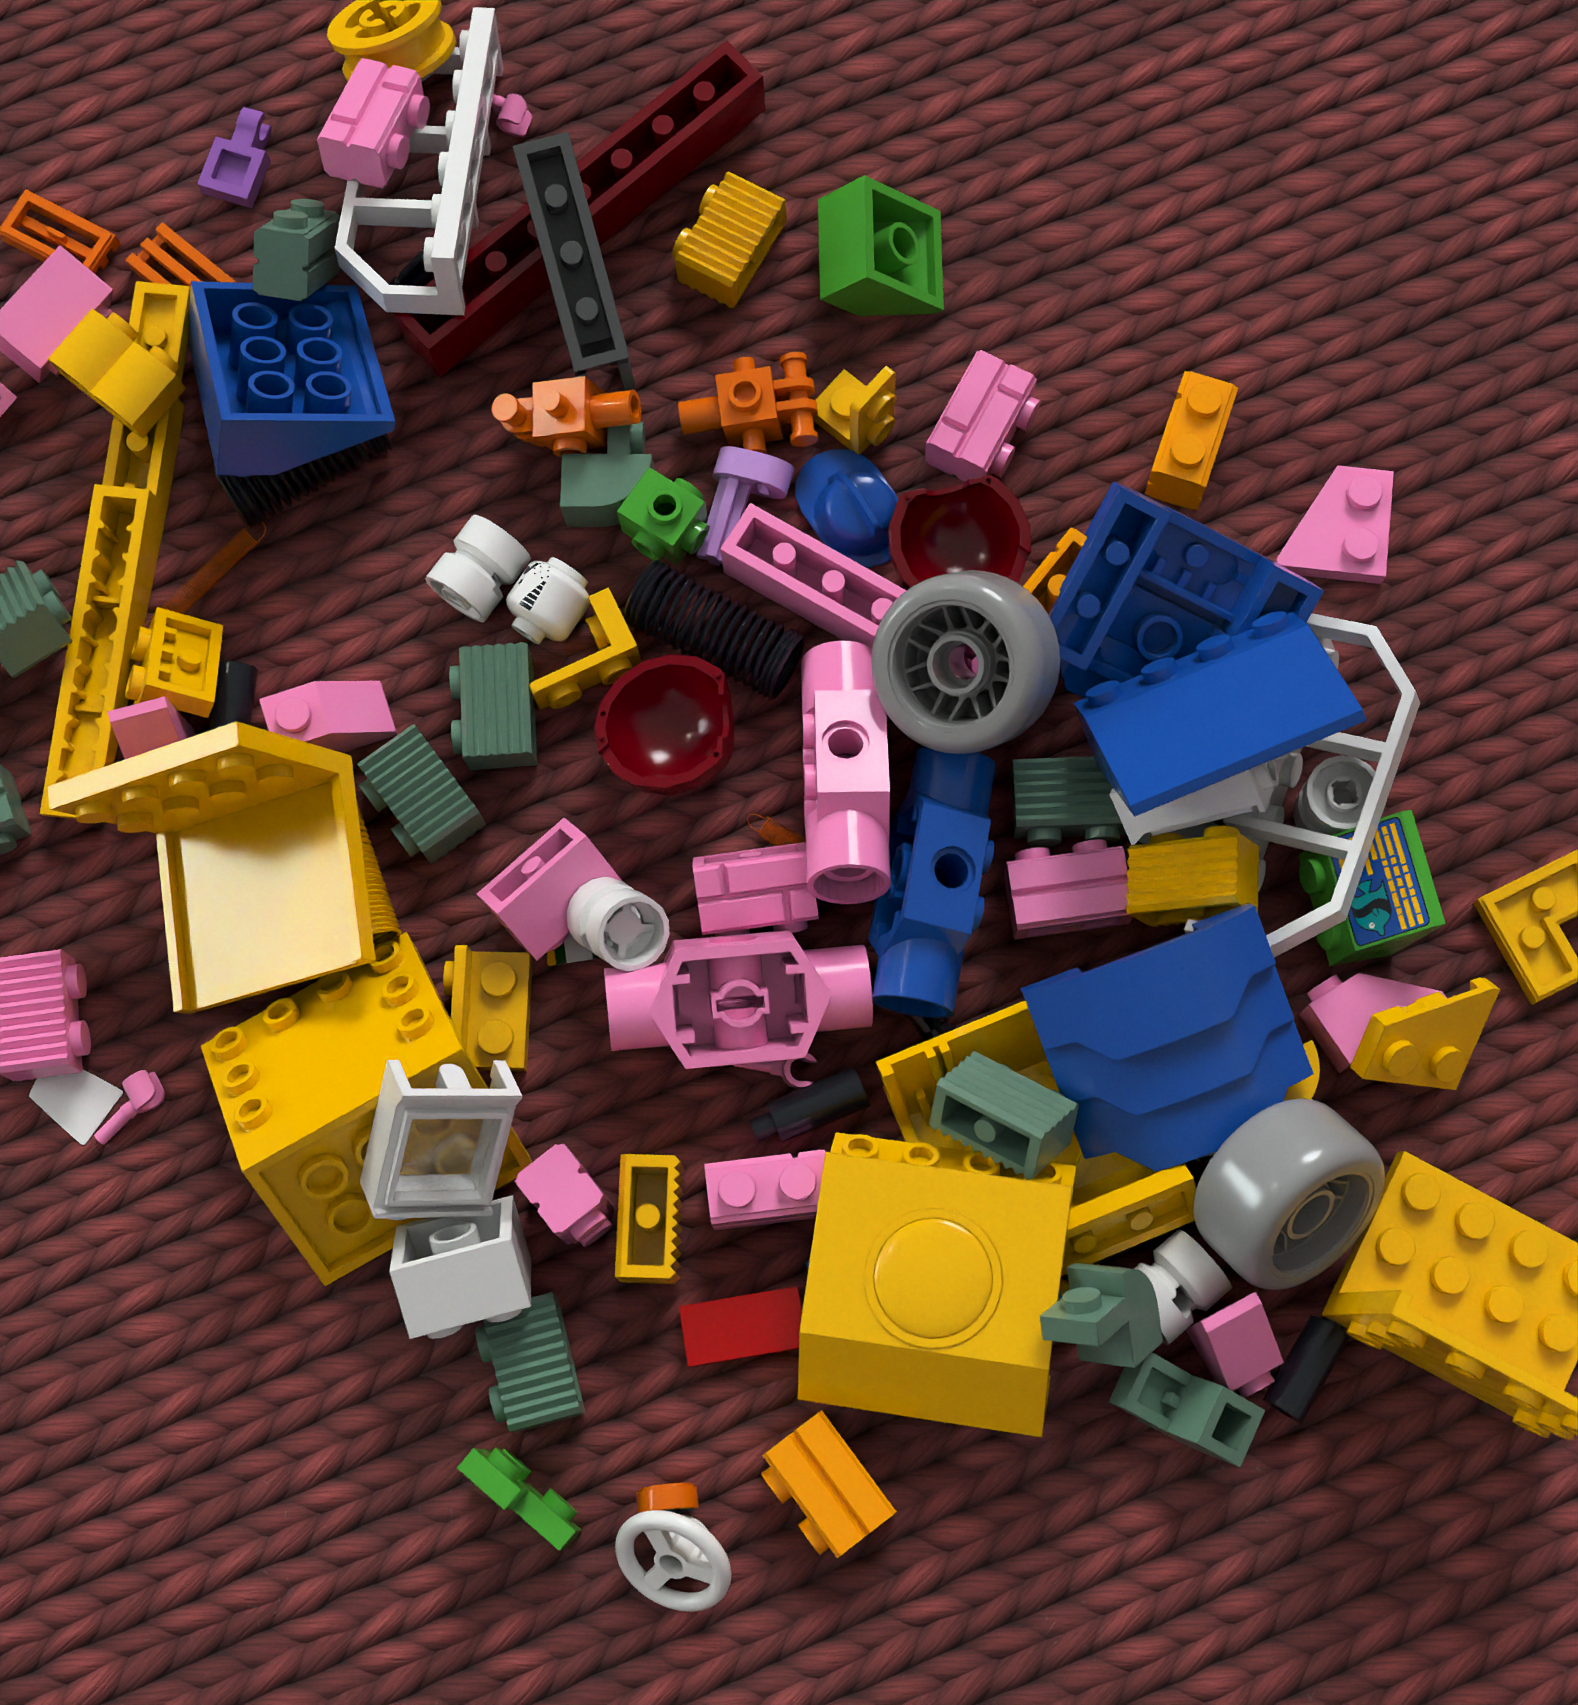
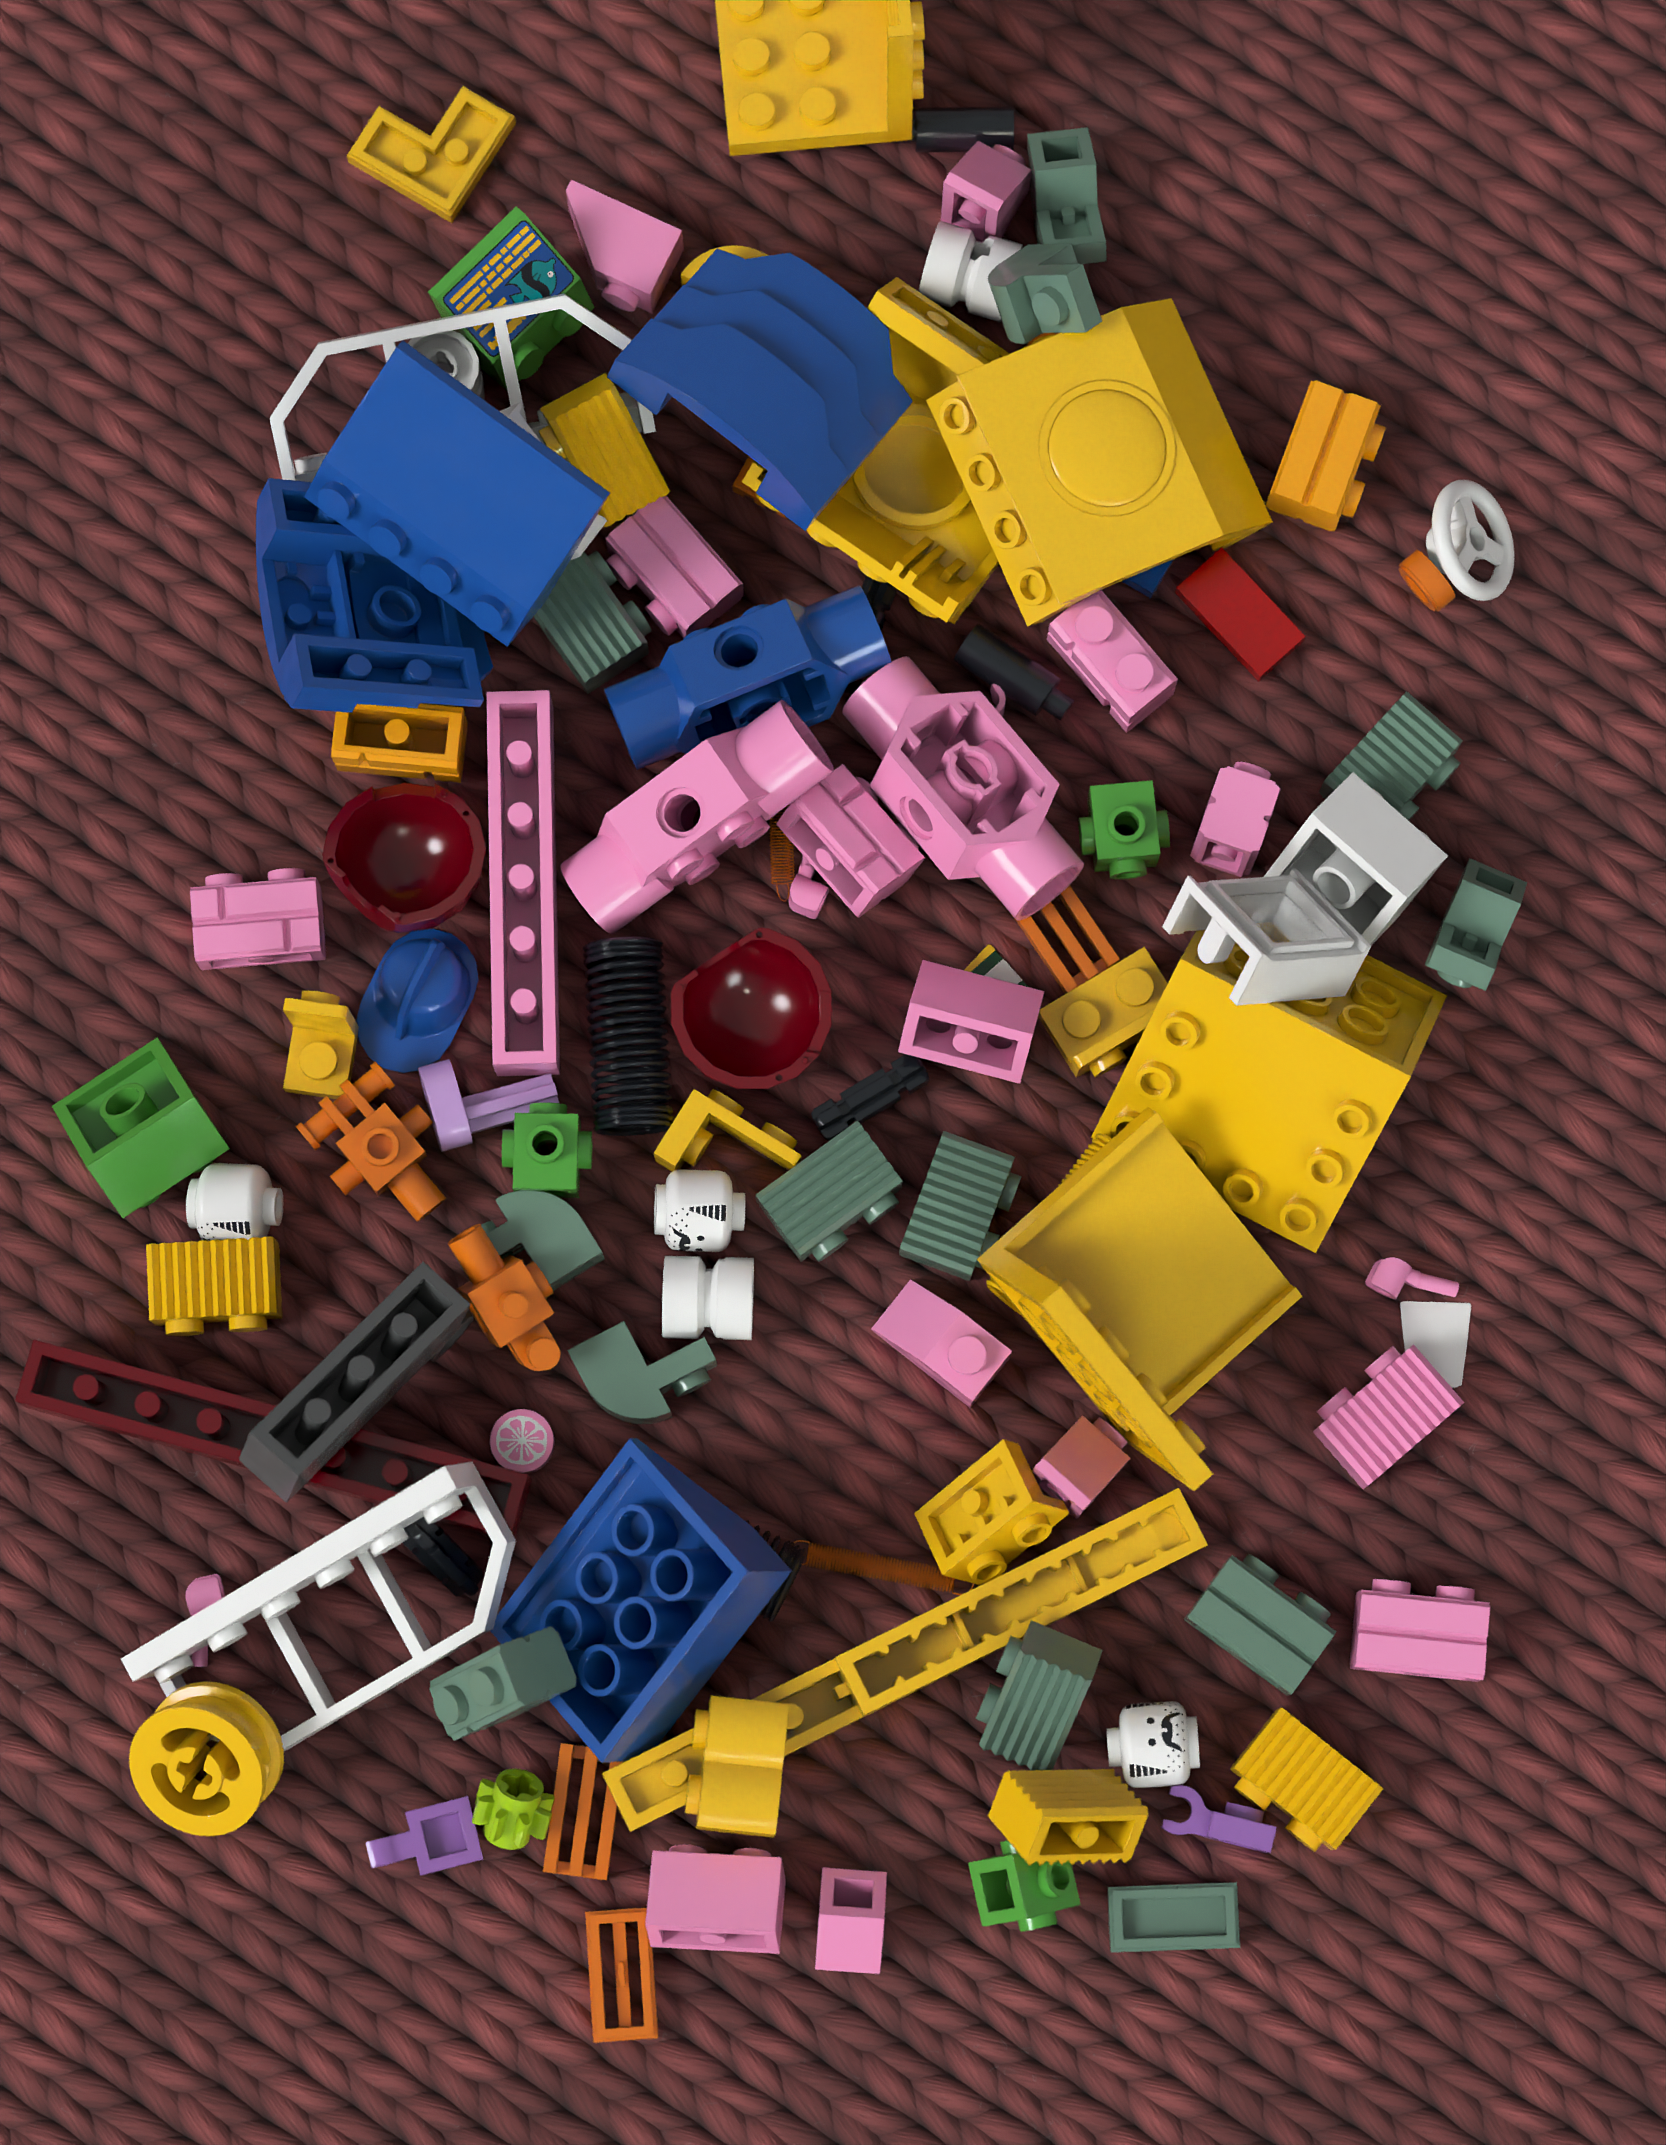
camera: 130 degrees left, 5 degrees up
(229, 225) = (513, 1809): none -> lime gear
(233, 694) = (1017, 1425): black cylinder -> none
(354, 1338) = (1475, 926): none -> sand green brick
(373, 123) = (324, 1690): bright pink brick -> none
(455, 477) = (630, 1388): none -> sand green brick
(471, 386) = (522, 1441): none -> bright pink tile
(504, 1481) = (1505, 718): bright green plate -> none
(537, 1014) = (1090, 930): none -> orange tile
(550, 781) = (870, 1096): none -> black axle
(618, 923) = (968, 928): white wheel -> none
(635, 1124) = (1128, 808): none -> bright green brick
(649, 1219) = (1206, 740): yellow brick -> none
(740, 835) = (806, 894): none -> bright pink hand
(778, 281) = (233, 1202): none -> white head
(923, 669) = (542, 745): light grey wheel -> none
(1003, 1114) = (925, 479): sand green brick -> none
(1191, 440) = (160, 713): light orange brick -> none
(1288, 1193) = (836, 209): light grey wheel -> none
(1344, 529) = (156, 531): bright pink wing -> none
(1426, 1040) = (619, 179): yellow wing -> none

